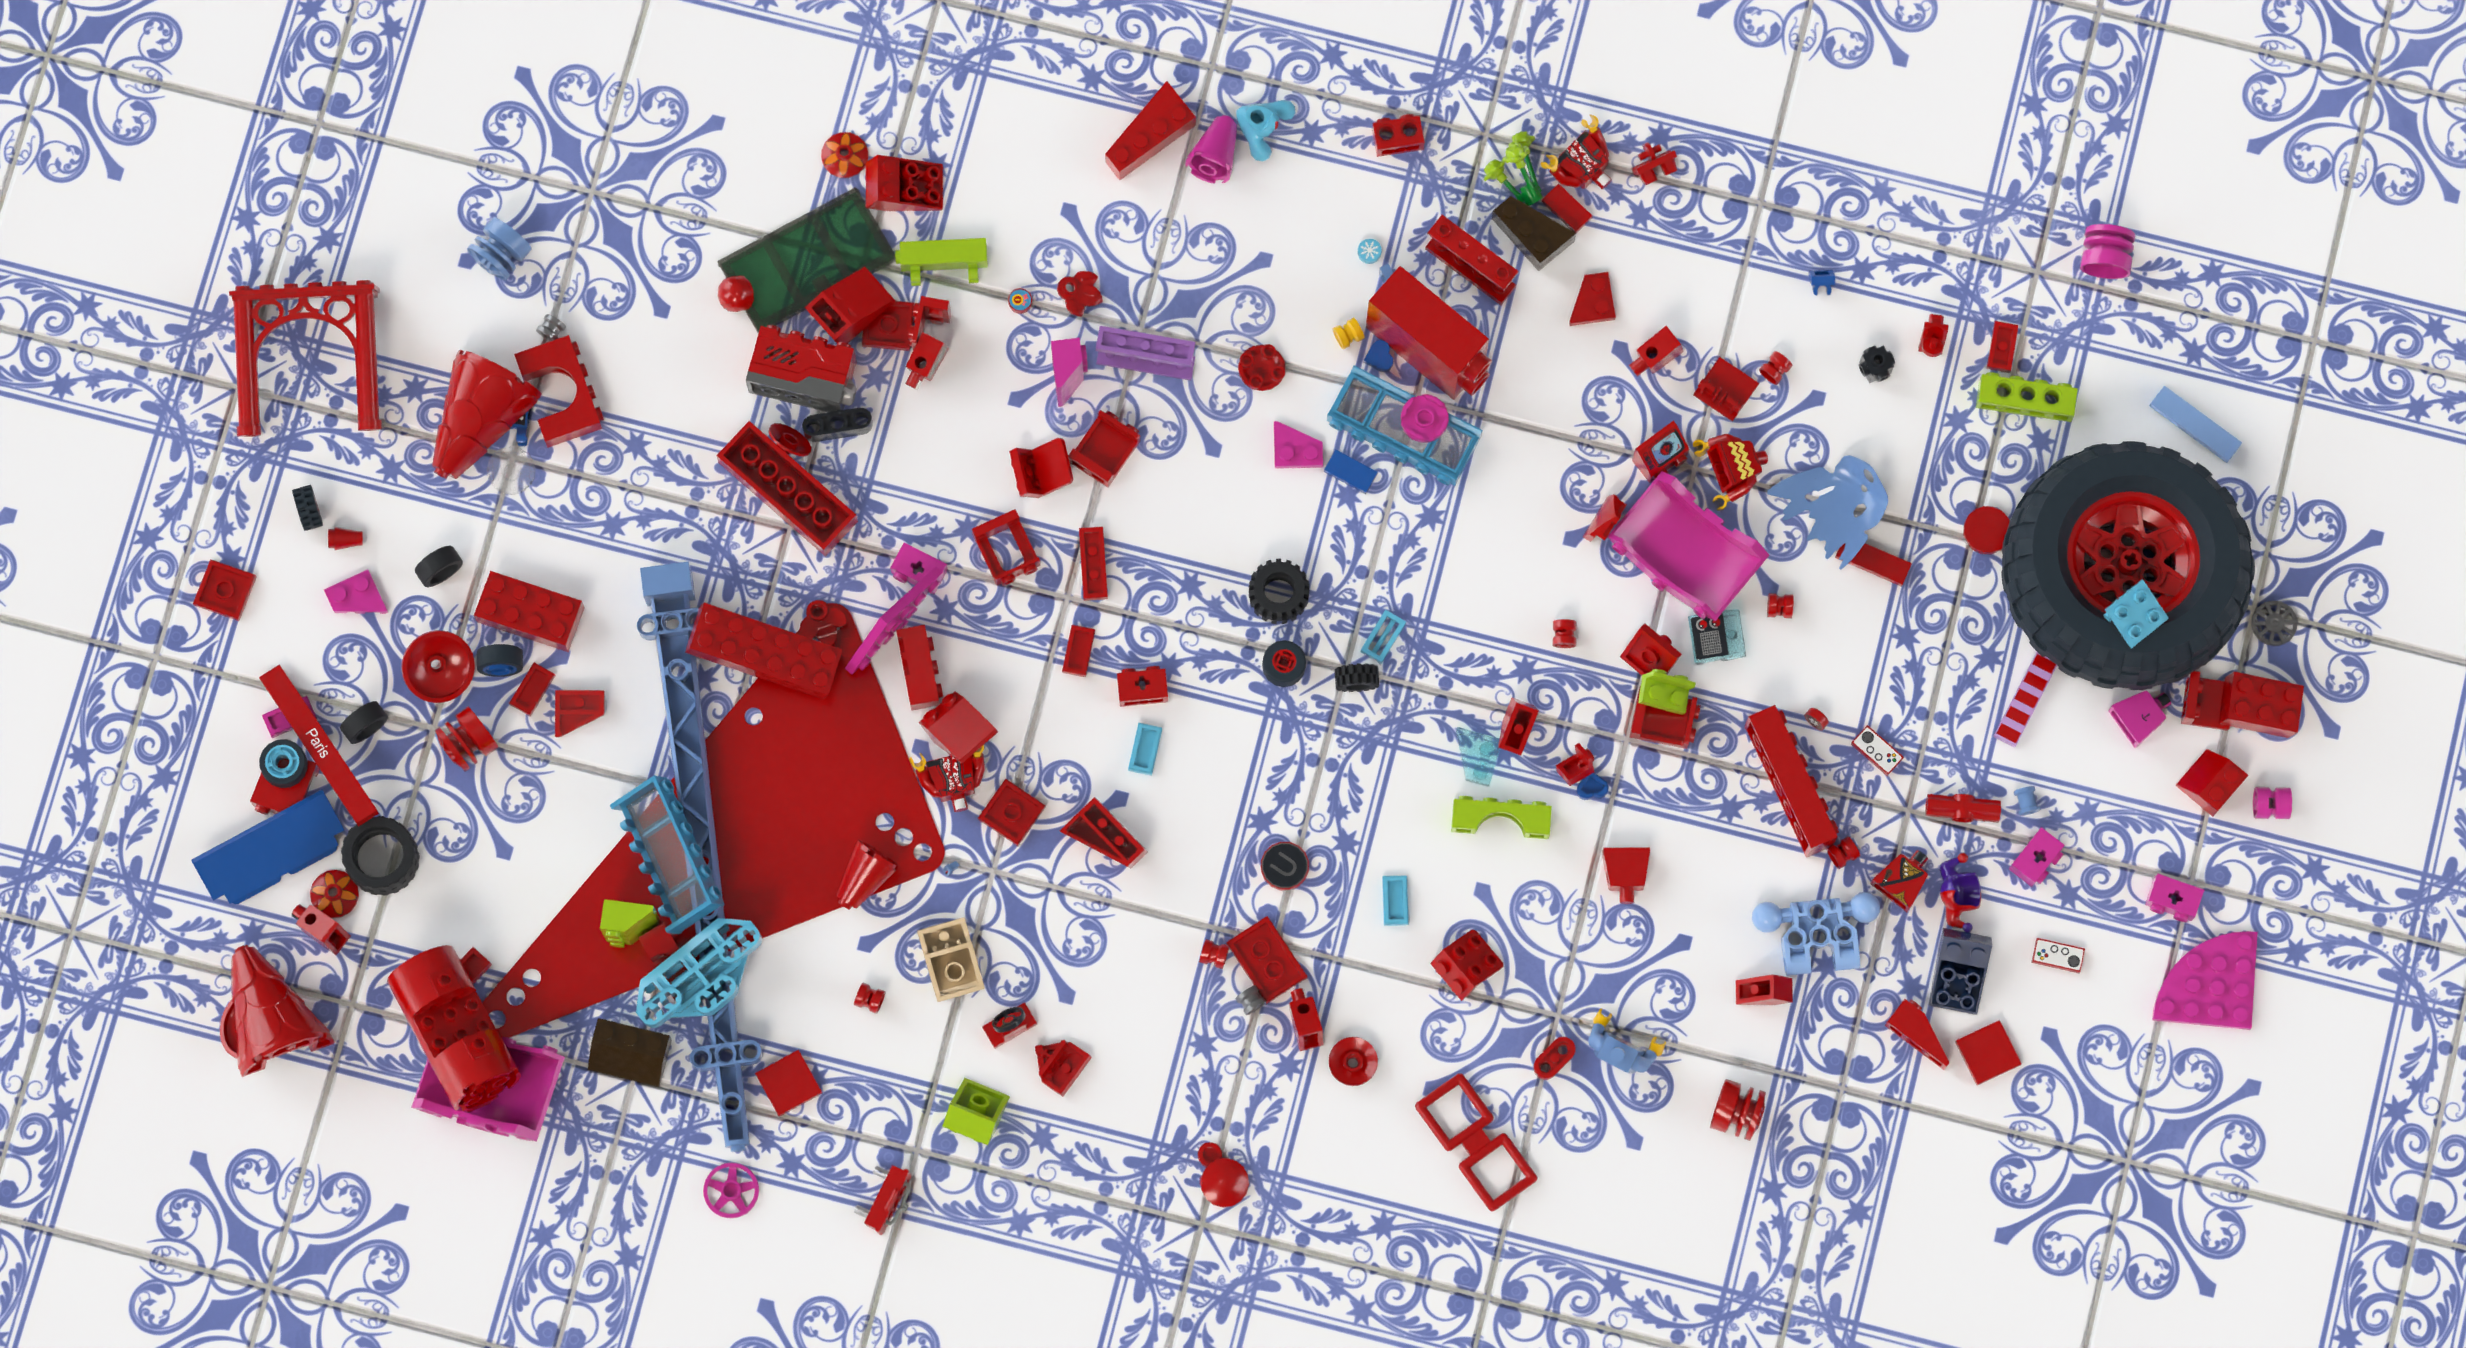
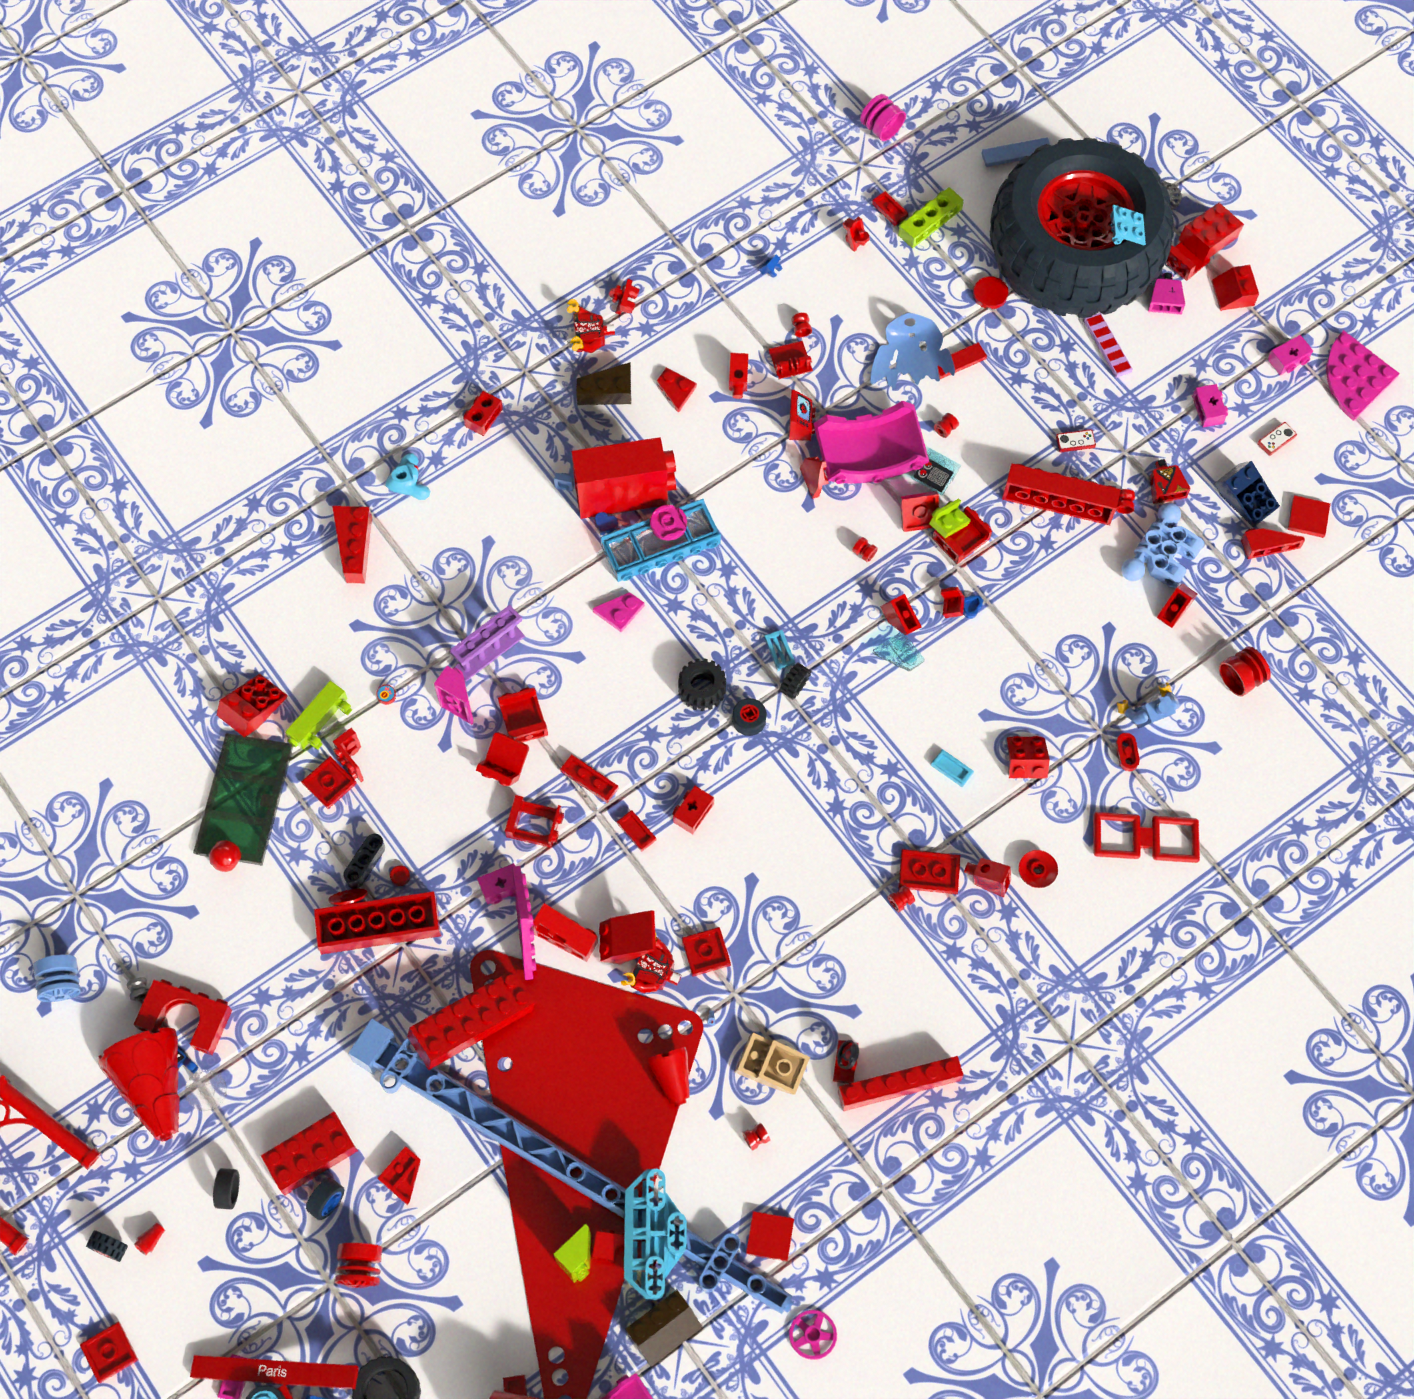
camera: 50 degrees left, 10 degrees down
(356, 595) = (194, 1262): dark pink wing -> none
(363, 722) = (285, 1327): black tyre -> none
(445, 680) = (304, 1240): red dish -> none
(532, 689) = (362, 1194): red tile -> none
(669, 853) = (553, 1189): window -> none
(802, 370) = (311, 853): piece -> none
(822, 626) = (486, 970): red plate -> none
(847, 165) = (199, 733): red dish -> none
(850, 305) = (297, 793): red slope -> none
(852, 469) = (399, 875): none -> red tile
(887, 1199) = (902, 1232): red piece -> none
(928, 350) = (371, 769): red torso -> none
(975, 1111) = (887, 1127): lime slope -> none
(1027, 1091) = (900, 1083): none -> red brick
(1060, 1065) = (897, 1049): red slope -> none
(1083, 292) = (414, 655): red plate -> none
(1104, 833) = (770, 903): red wedge -> none
(1145, 749) = (733, 840): medium azure tile -> none
(1208, 1153) = (1030, 1003): red tile -> none
(1214, 152) = (400, 516): dark pink cone -> none
(1224, 1182) = (1057, 1007): red dish -> none
(1250, 1000) = (949, 899): flat silver wheel -> none
(1261, 367) = (553, 591): red dish -> none
(1284, 866) = (877, 815): black tile -> none
(1347, 333) = (576, 528): yellow wheel -> none
(1350, 471) = (661, 591): blue tile -> none
(1369, 251) = (537, 481): medium azure tile -> none
(1471, 260) = (596, 435): red fence -> none
(1516, 153) = (556, 353): plant -> none
(1531, 818) = (966, 652): lime arch -> none
(1567, 208) = (607, 360): red tile -> none
(1626, 870) = (1041, 624): red torso -> none
(1734, 465) = (840, 385): red torso -> none
(1816, 718) = (1031, 456): red tile -> none
(1875, 371) = (845, 273): black brick -> none
(1959, 892) = (1198, 460): dark purple piece -> none
(1963, 808) = (1148, 421): red piece -> none
(2027, 800) = (1171, 386): medium blue bush -> none
(2280, 803) = (1273, 268): dark pink wheel -> none

